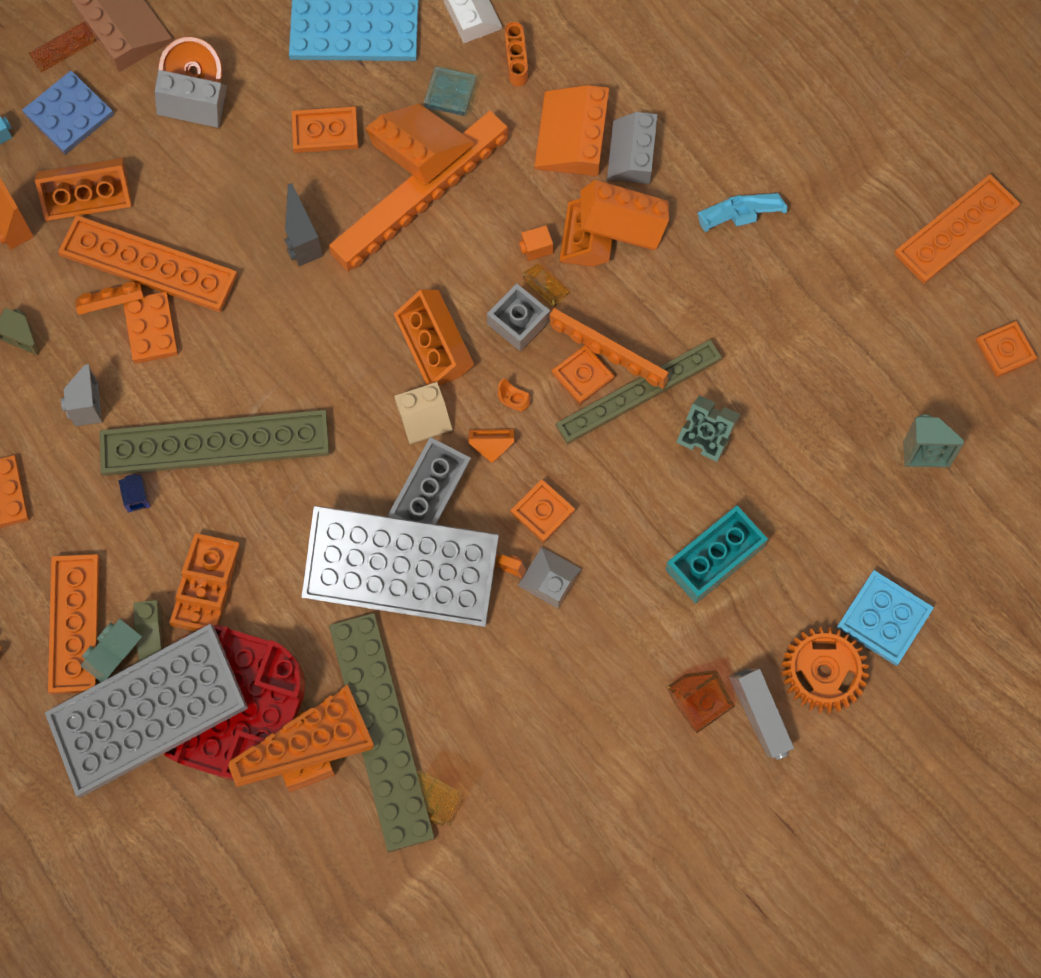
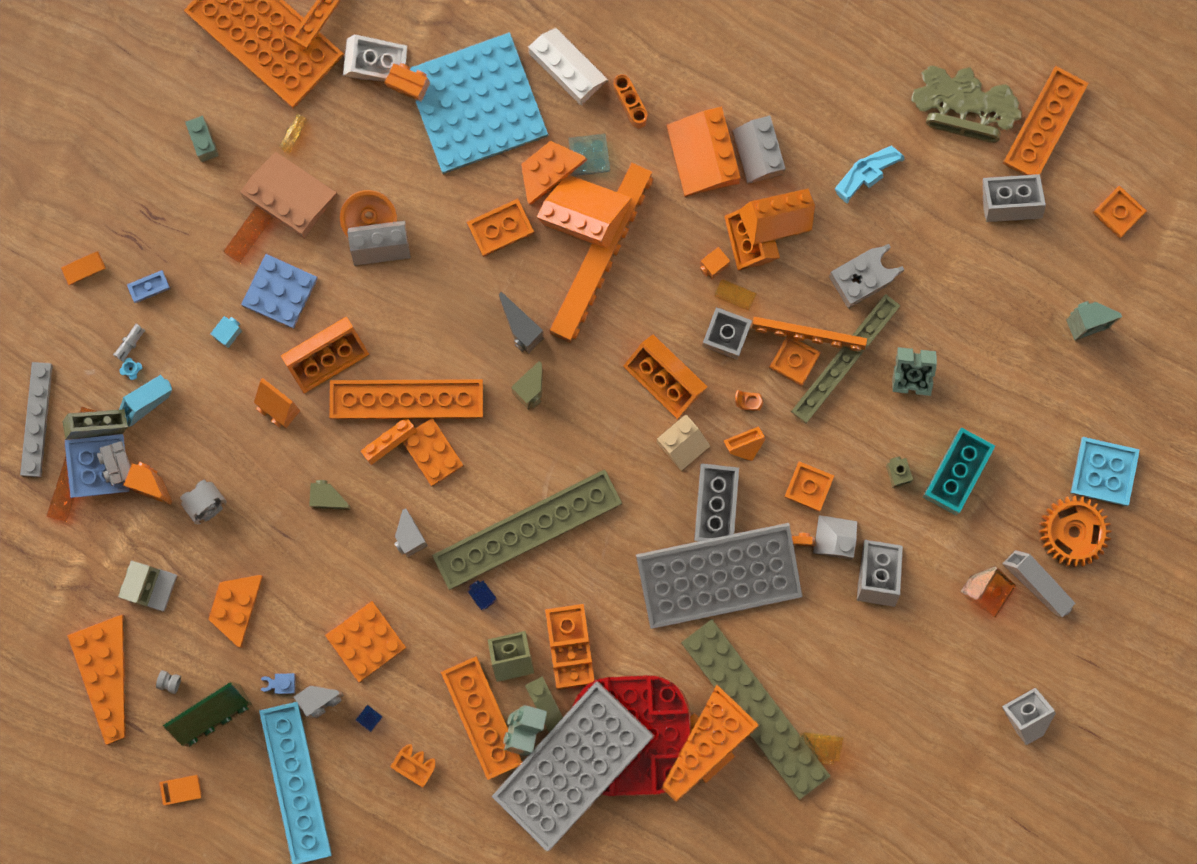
camera: 20 degrees left, 10 degrees up
(134, 569) = (510, 656): none -> olive slope
(283, 293) = (529, 387): none -> olive slope
(400, 89) = (548, 168): none -> orange wing
(583, 633) = (880, 573): none -> light grey slope
(649, 532) = (899, 471): none -> olive brick
(692, 858) = (1029, 715): none -> light grey slope
(700, 312) = (870, 273): none -> light grey brick
(876, 171) = (965, 96): none -> olive plant
(891, 290) = (1013, 198): none -> light grey slope

